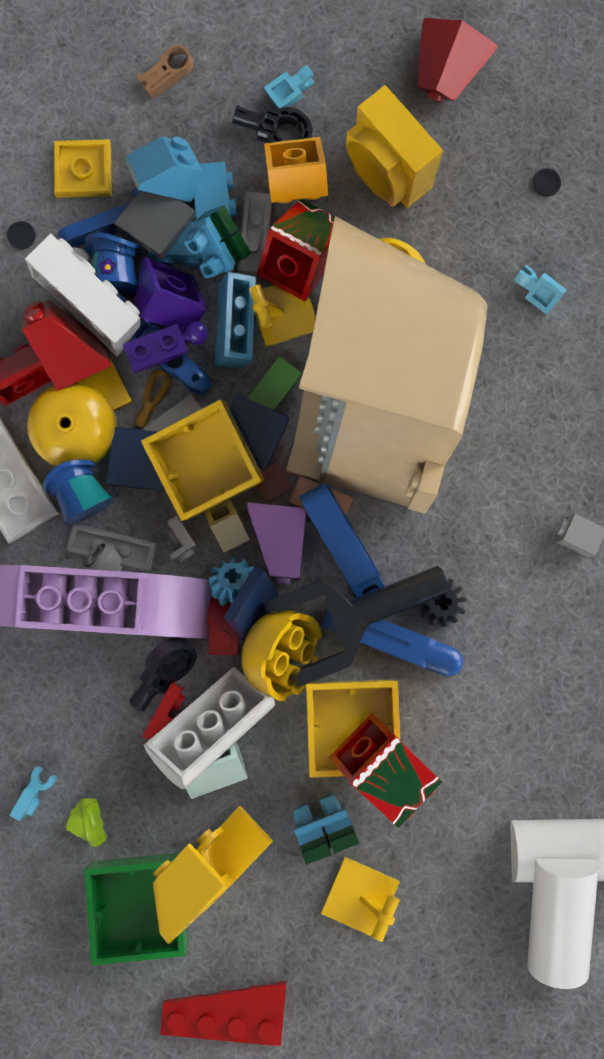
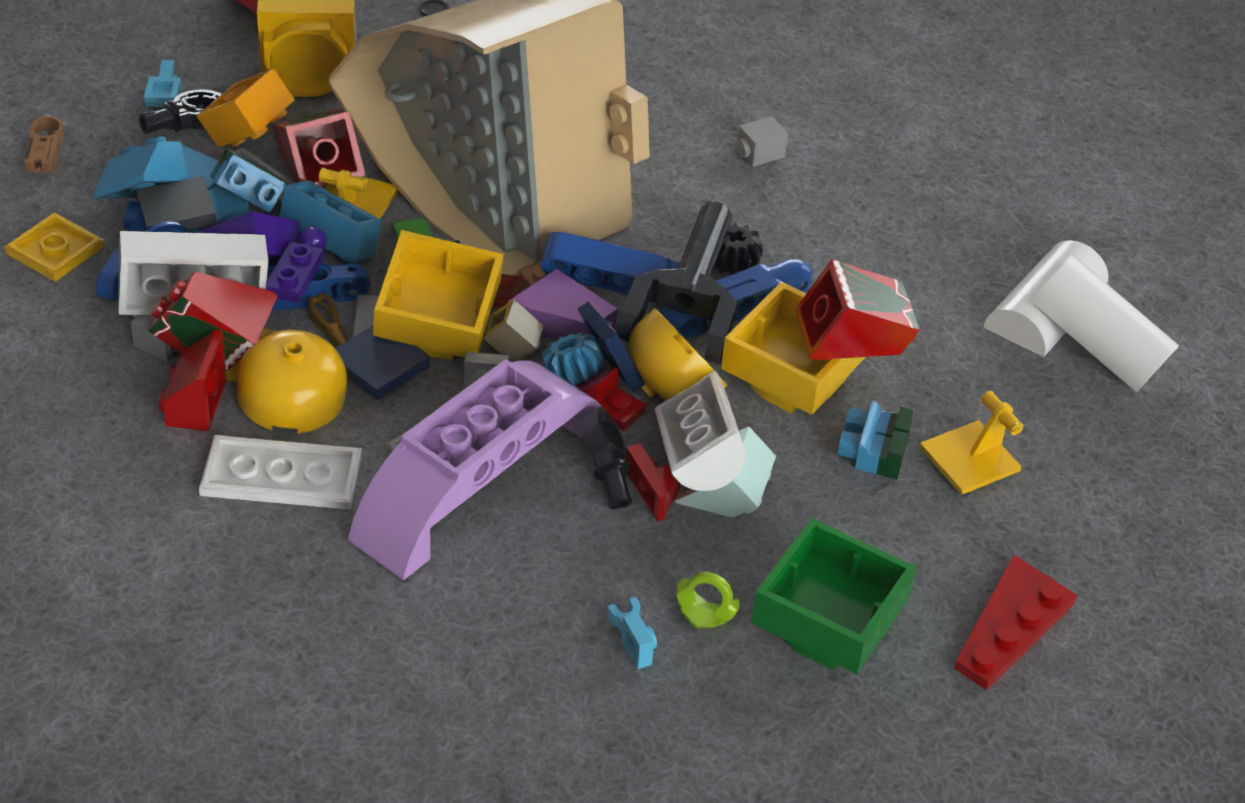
camera: 55 degrees left, 40 degrees down
(21, 235) = (58, 322): black piece -> none
(76, 490) = (362, 404): blue hat -> none
(203, 874) = (845, 478): yellow windscreen -> none

